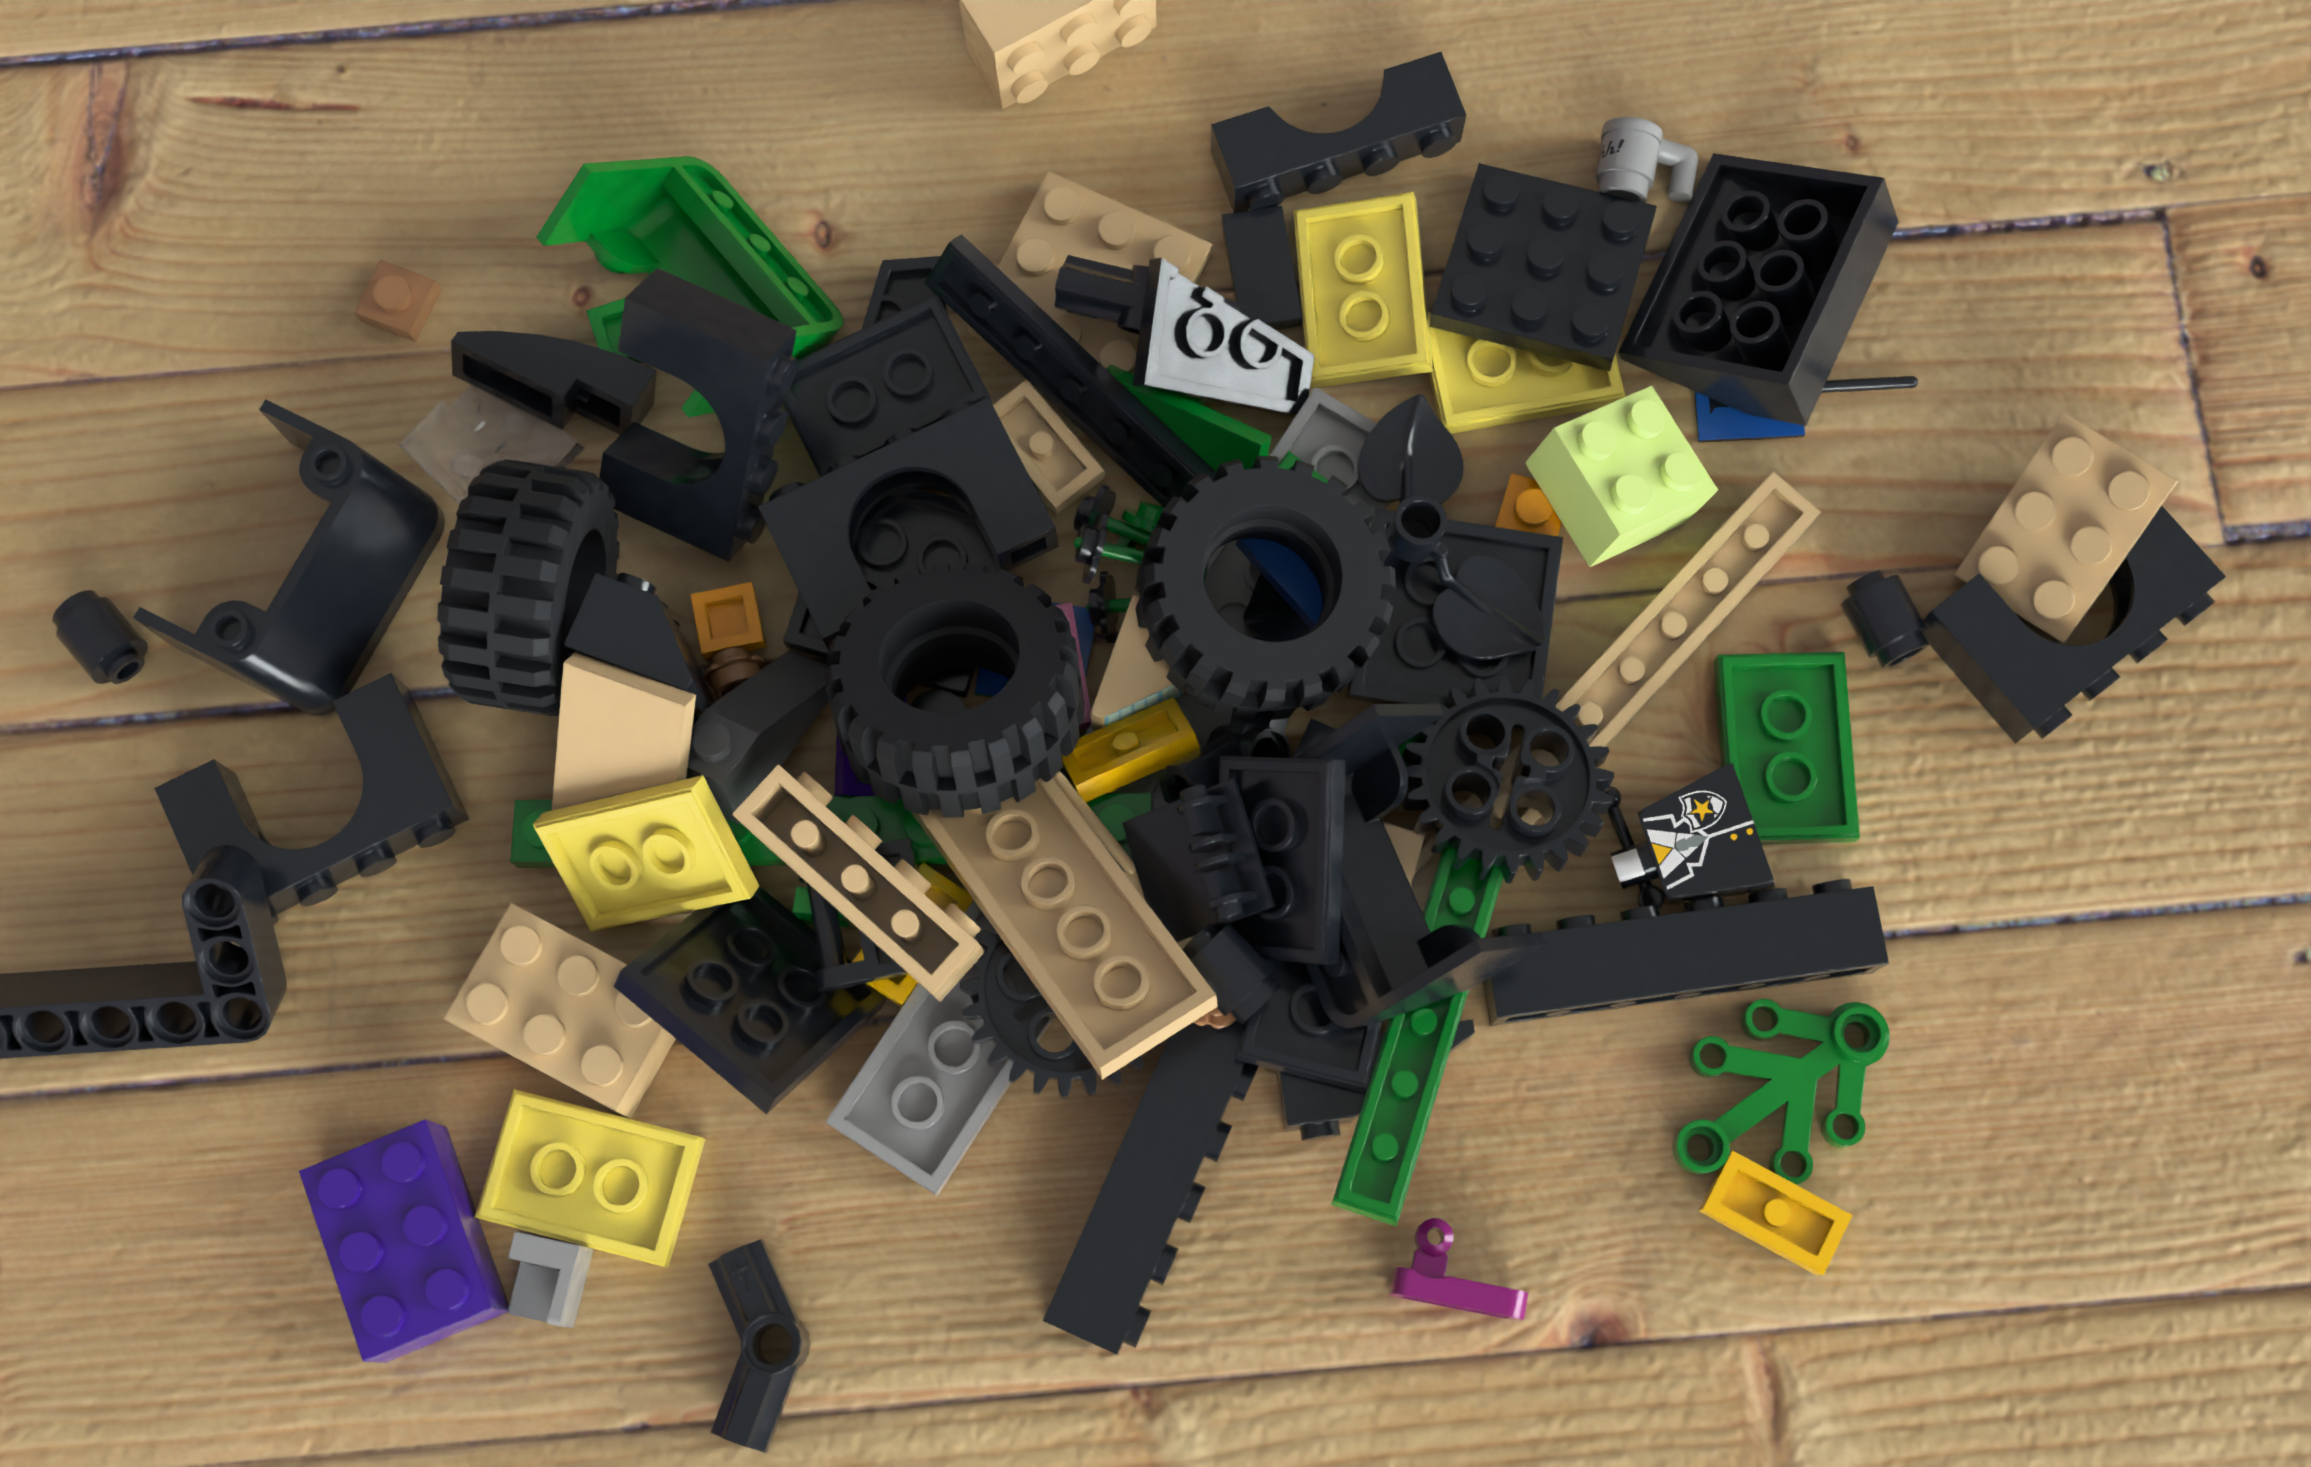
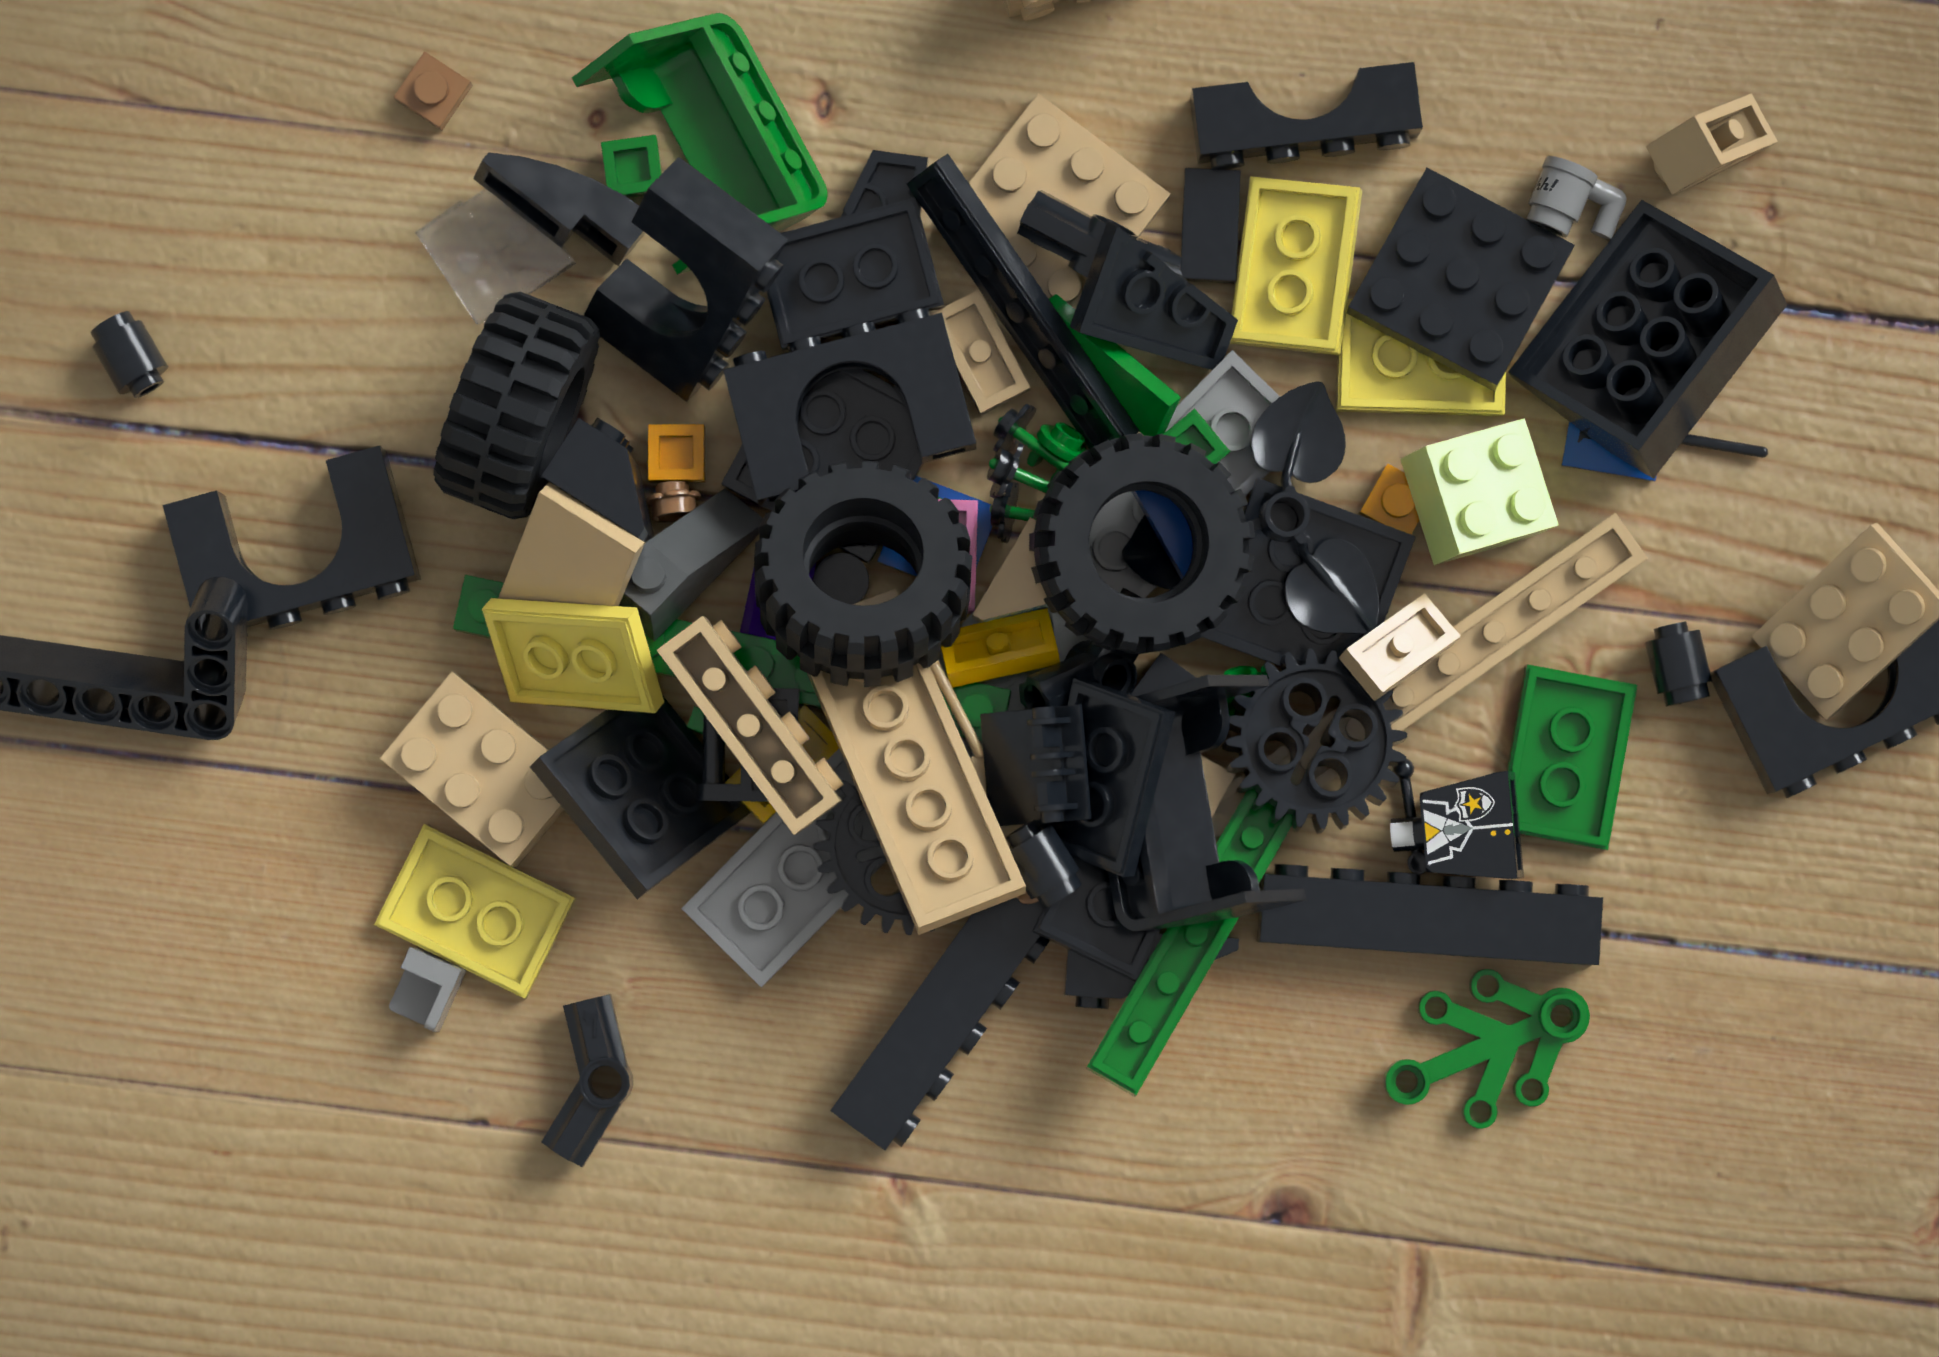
camera: 10 degrees right, 10 degrees up
(340, 587) = (348, 356): black windscreen -> none
(404, 1241) = (315, 933): dark purple brick -> none
(1428, 1283) = (1154, 1146): magenta piece -> none
(1576, 655) = (1399, 647): none -> plate
(1770, 79) = (1710, 143): none -> tan slope
(1775, 1213) = (1454, 1148): yellow plate -> none

